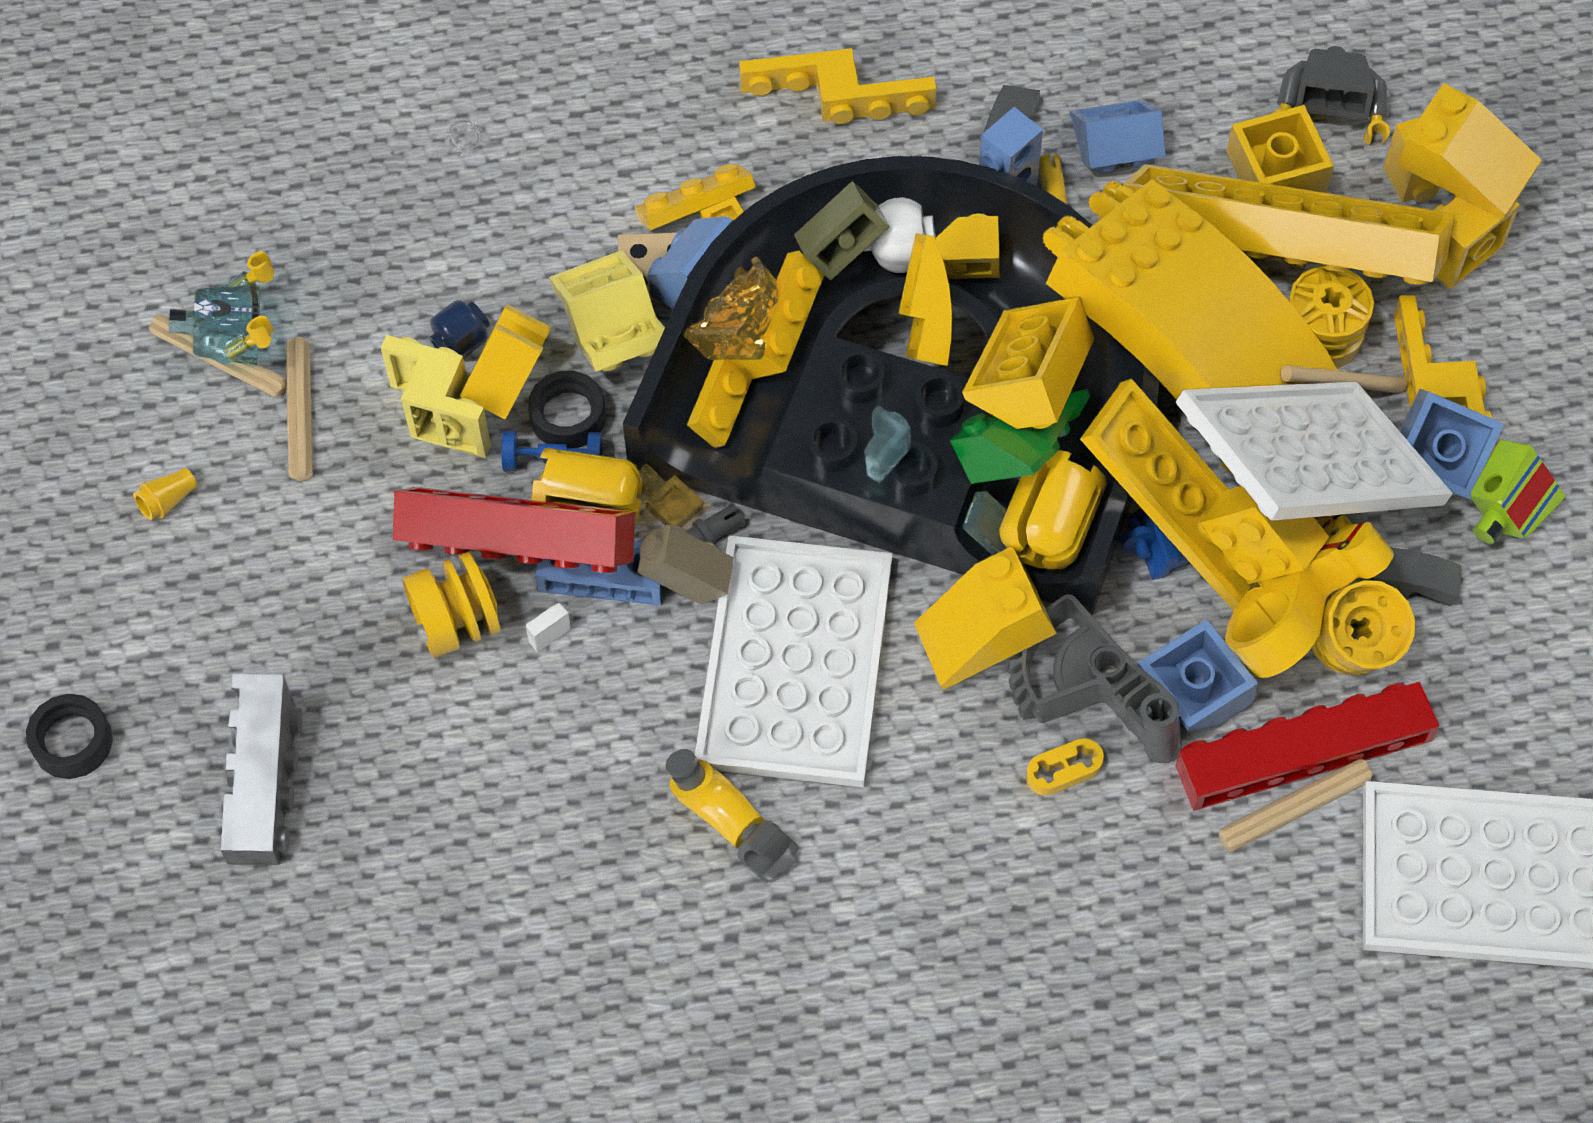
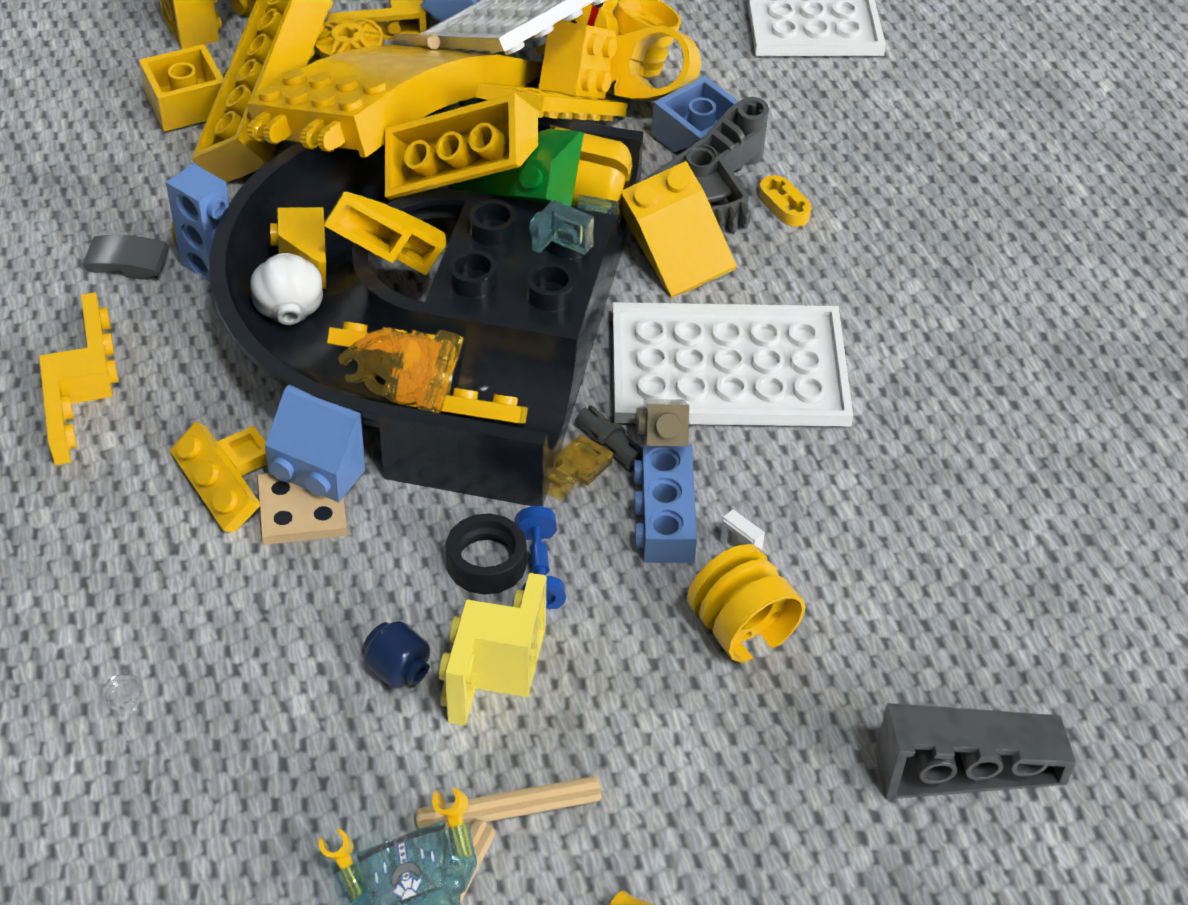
camera: 100 degrees left, 15 degrees down
(506, 361) = (441, 591): yellow piece -> none
(514, 527) = (658, 548): brick -> none
(588, 481) = (596, 510): yellow cylinder -> none
(609, 310) = (372, 516): light yellow bracket -> none
(719, 803) = (889, 394): piece -> none
(841, 230) = (297, 305): olive brick -> none
(1119, 134) = (137, 185): medium blue slope -> none
(1295, 805) = (781, 85): tan axle -> none
(1306, 744) = (738, 72): red brick -> none
(1337, 86) = (108, 62): dark grey torso -> none

